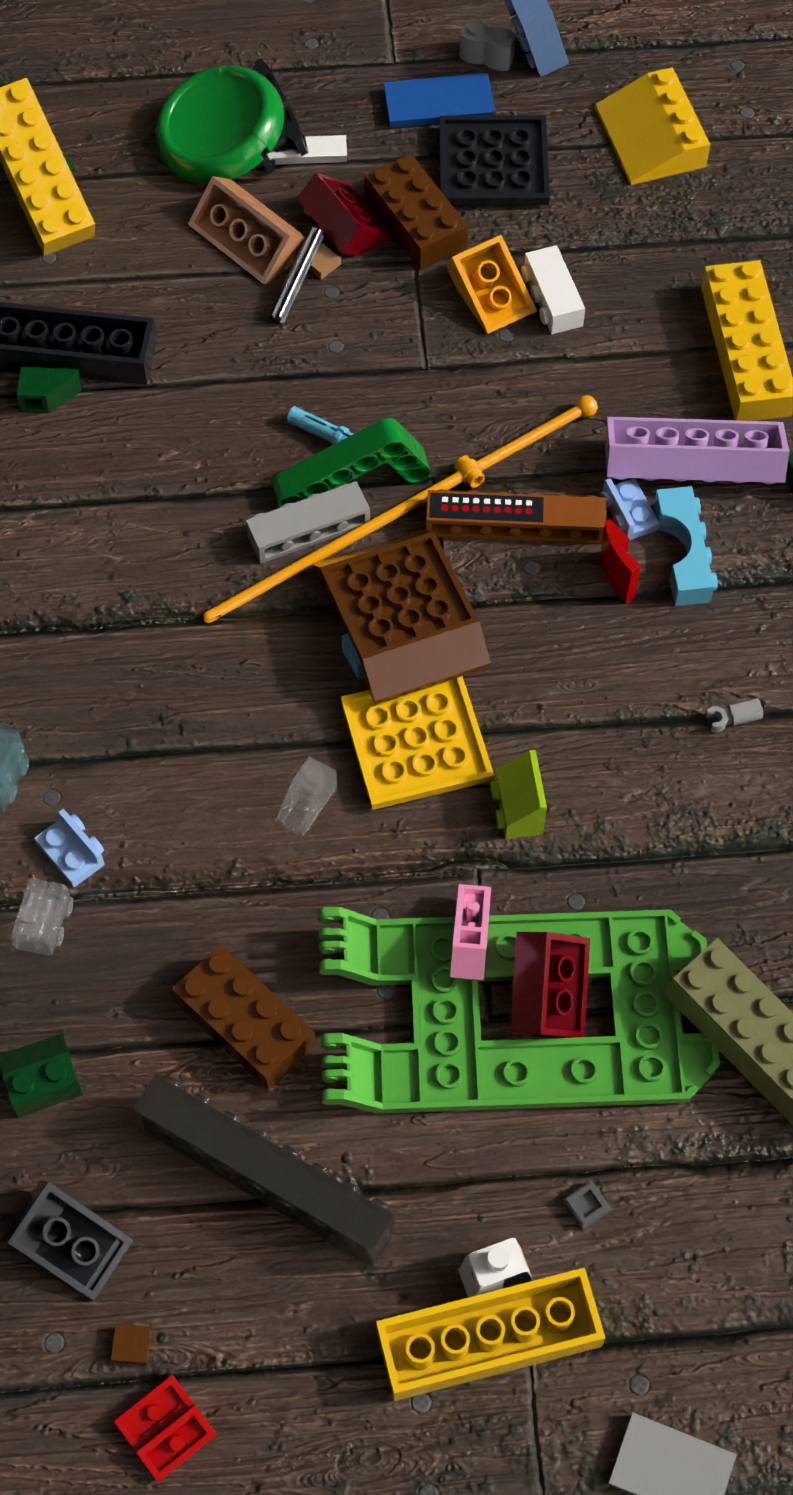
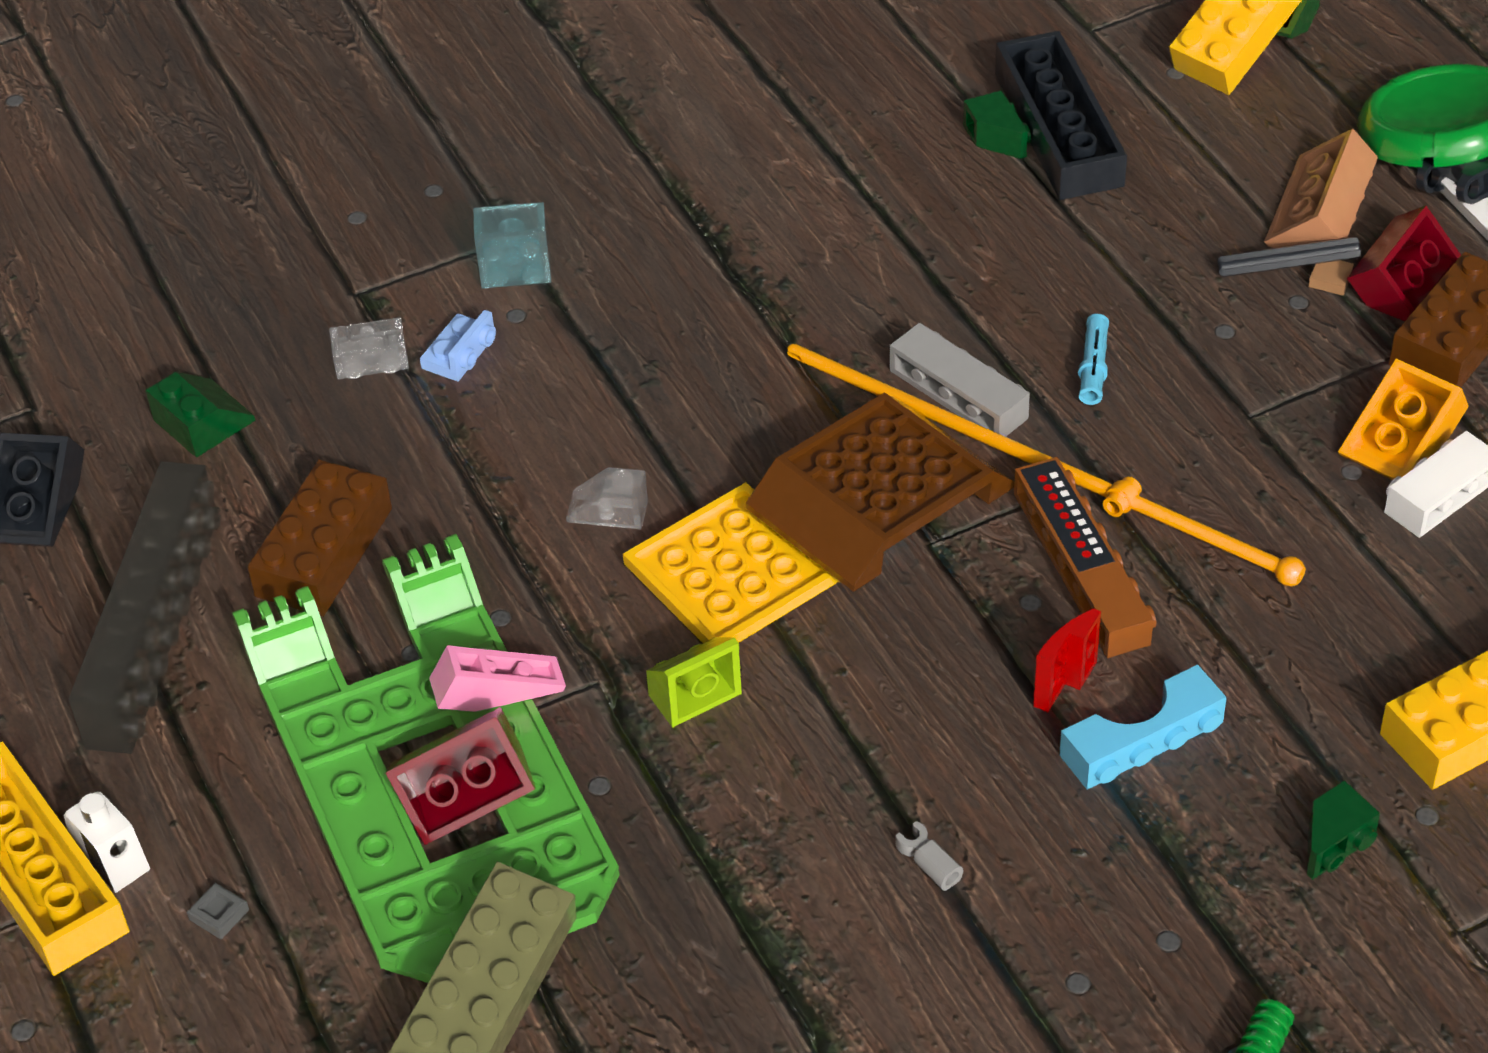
camera: 70 degrees right, 15 degrees down
(351, 458) = (1065, 374): green beam -> none
(629, 508) = (1164, 655): light blue bracket -> none
(696, 450) = (1285, 685): lavender brick -> none

